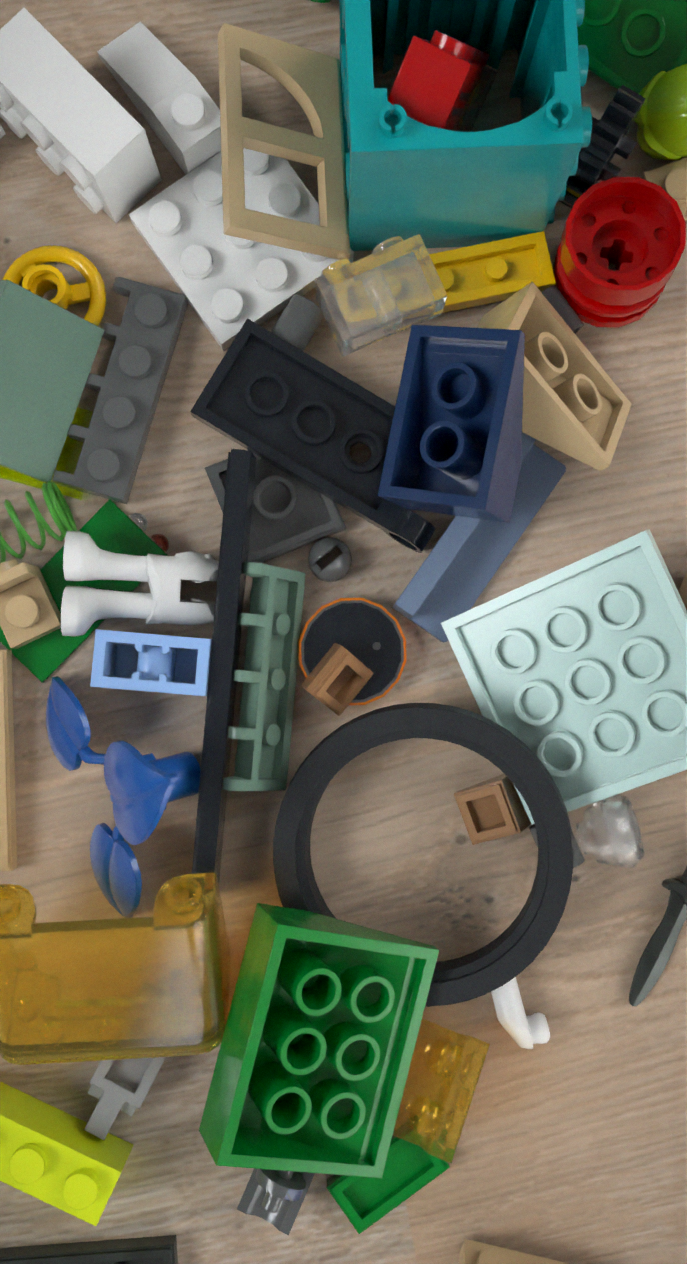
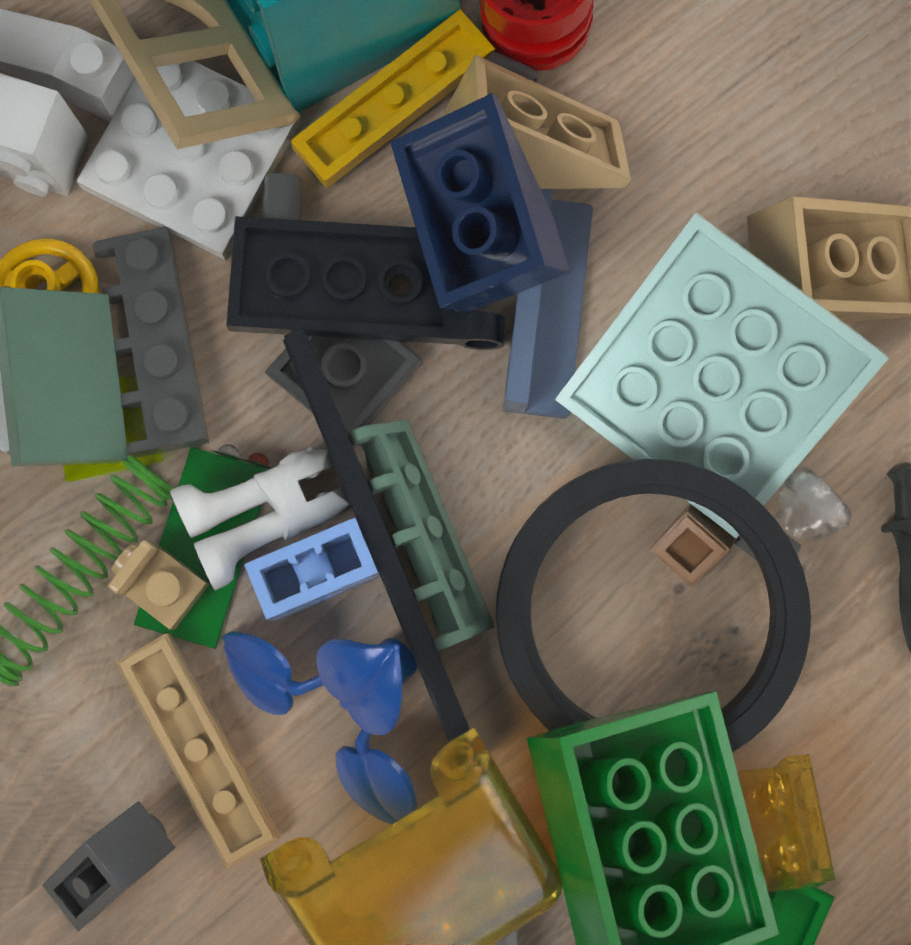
camera: 25 degrees left, 5 degrees down
(336, 569) = (434, 400): dark grey hinge -> none
(337, 679) = (488, 497): medium nougat slope -> none
(366, 633) = (488, 468): black tile -> none
(379, 293) = (344, 133): clear brick -> none
(511, 1015) = (811, 721): white arm -> none

